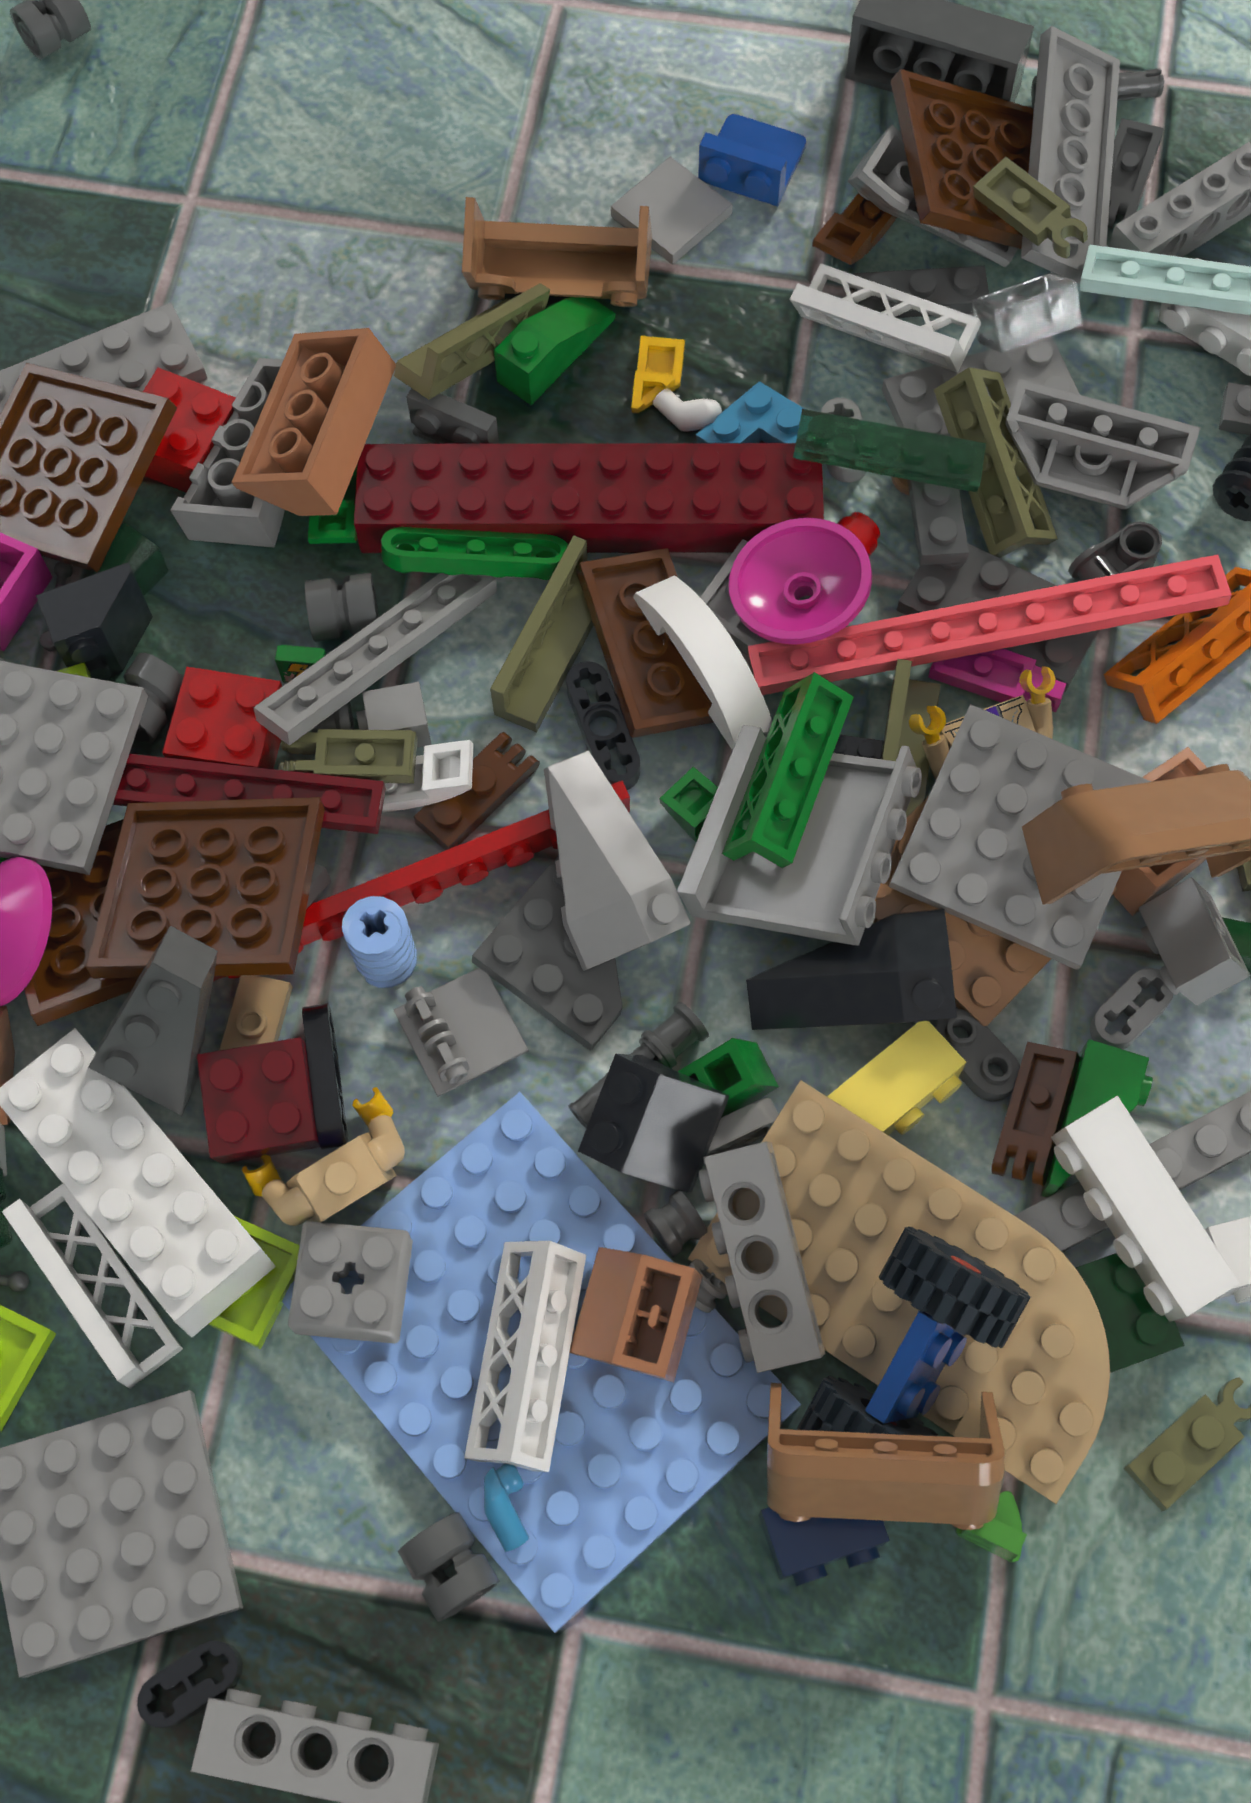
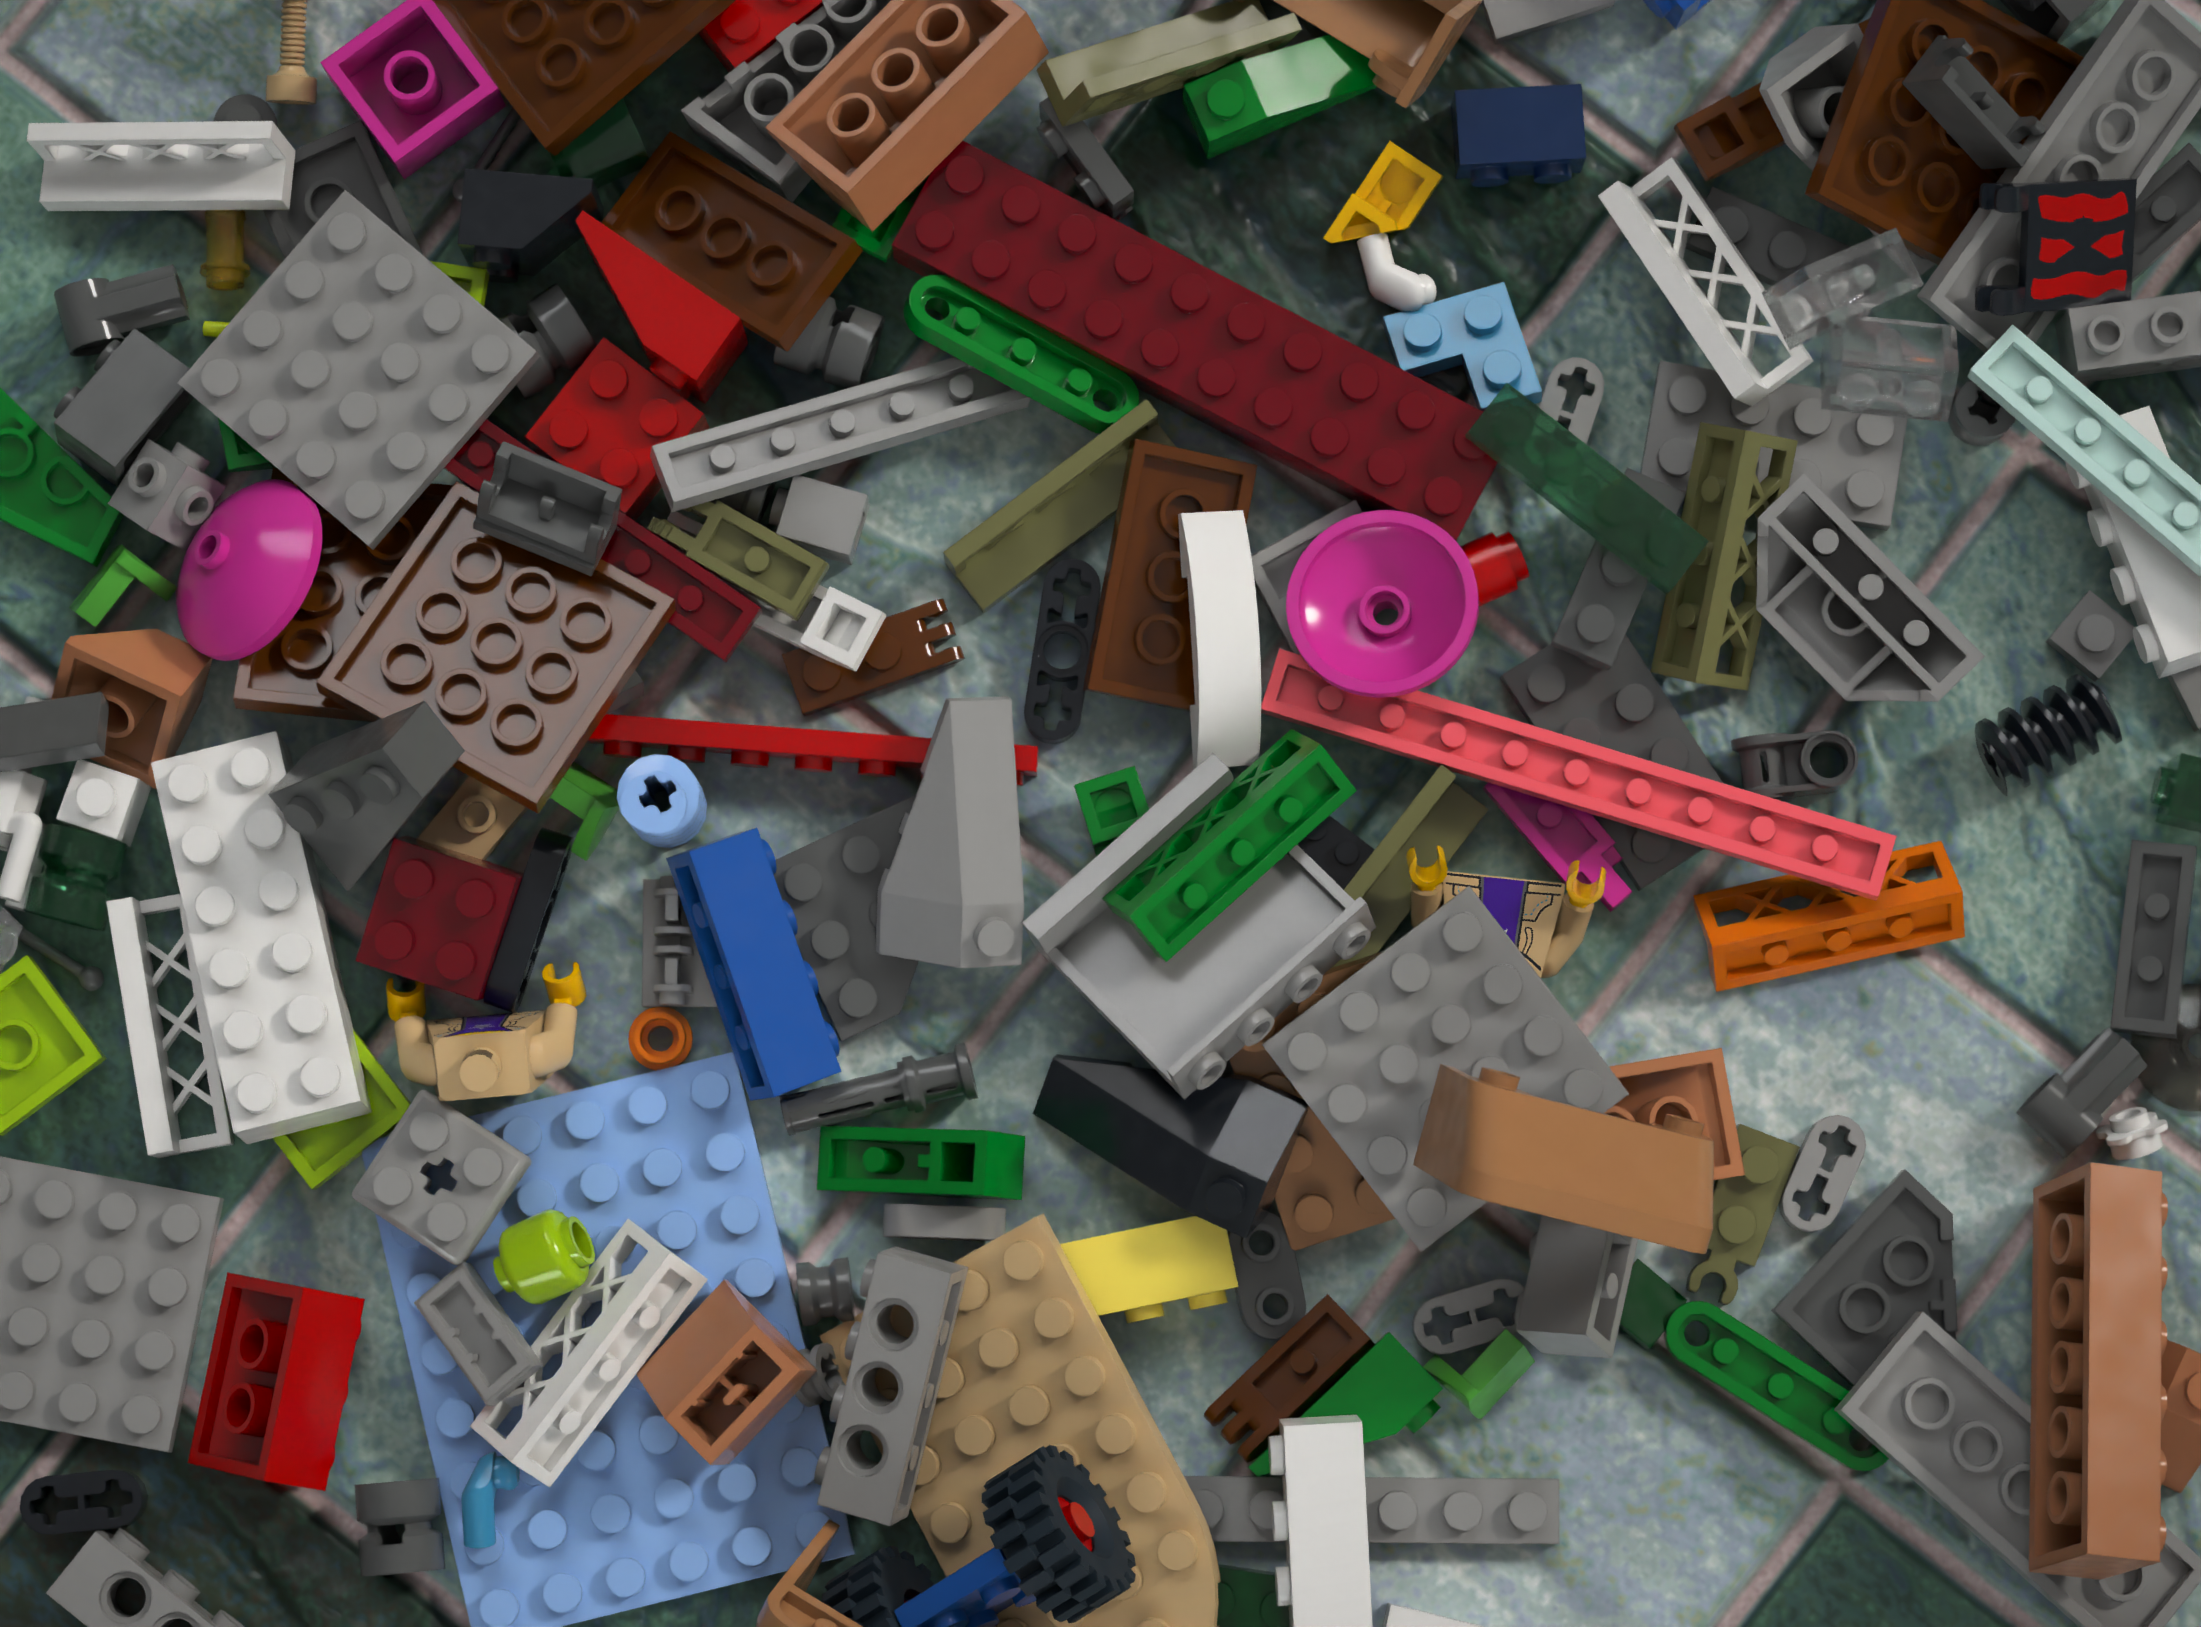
camera: 25 degrees right, 15 degrees up
(200, 778) = (548, 509): none -> dark grey hinge
(214, 628) = (678, 326): none -> red slope
(244, 573) = (733, 239): none -> reddish brown plate
(296, 659) = (745, 388): green tile -> none
(298, 1505) = (276, 1382): none -> red slope
(335, 972) = (591, 801): none -> bright green tile
(436, 1382) = (478, 1334): none -> light grey plate
(456, 1298) = (544, 1256): none -> lime head
(459, 1096) = (649, 1021): none -> orange plate
(502, 1017) = (755, 964): none -> blue brick
(653, 1122) = (855, 1173): black slope -> none
(717, 295) = (1518, 133): none -> dark blue brick
(975, 266) = (1842, 288): none -> clear brick
(985, 135) = (1970, 106): none -> dark grey hinge
(1029, 207) = (1951, 244): olive plate -> none
(1092, 185) = (2071, 244): none -> flag
(1100, 327) = (1971, 417): none -> dark grey wheel
(1169, 1048) = (1487, 1376): none -> bright green tile

